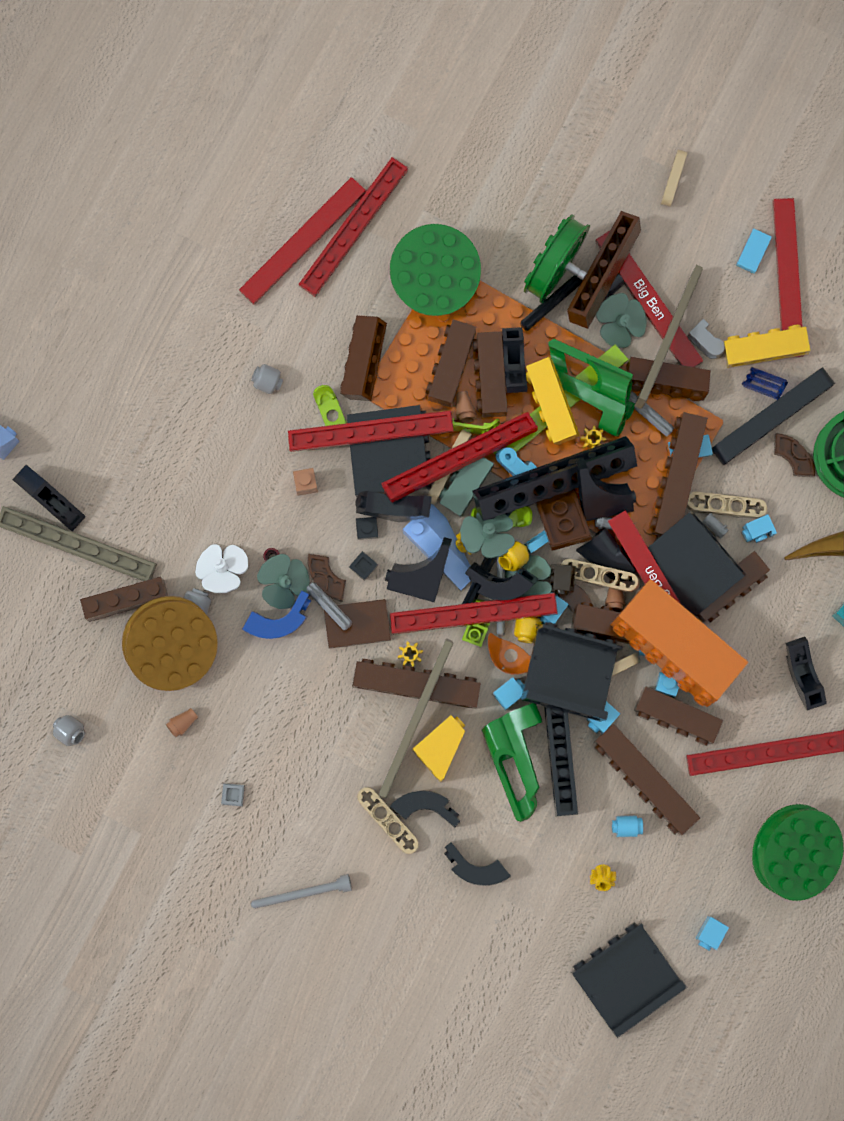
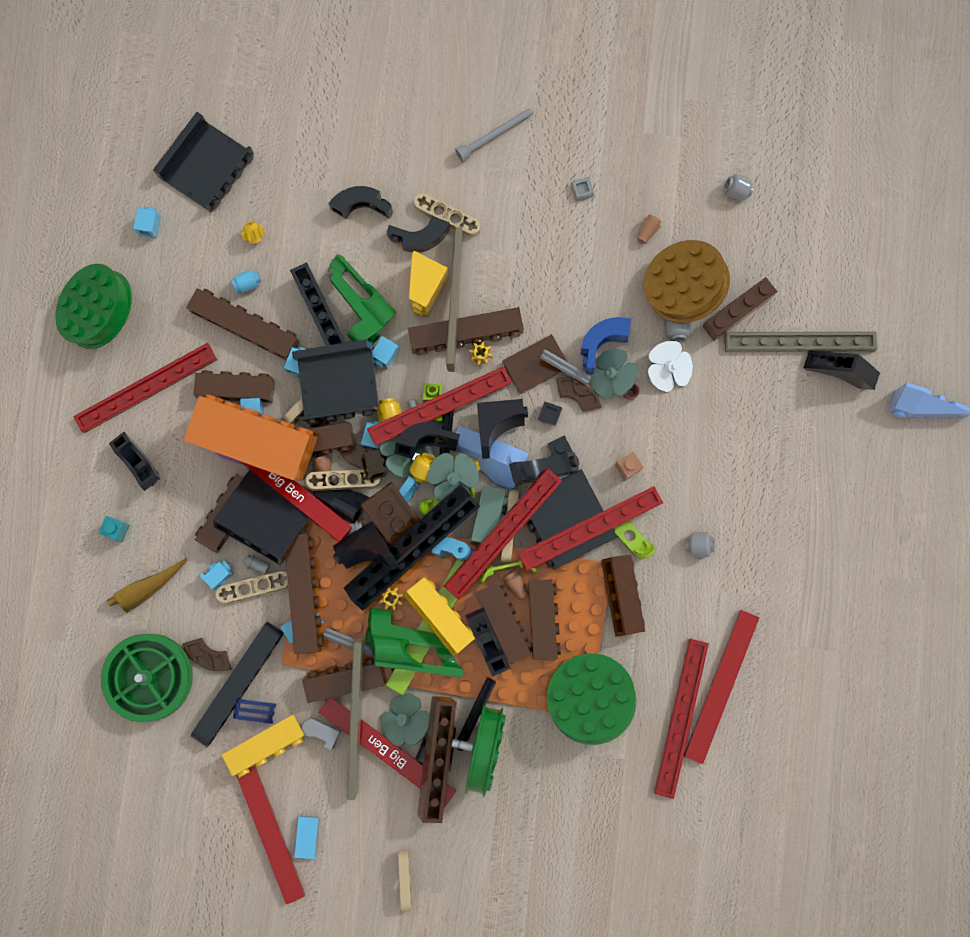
camera: 160 degrees right, 0 degrees up
(497, 649) = (388, 375): orange piece -> none

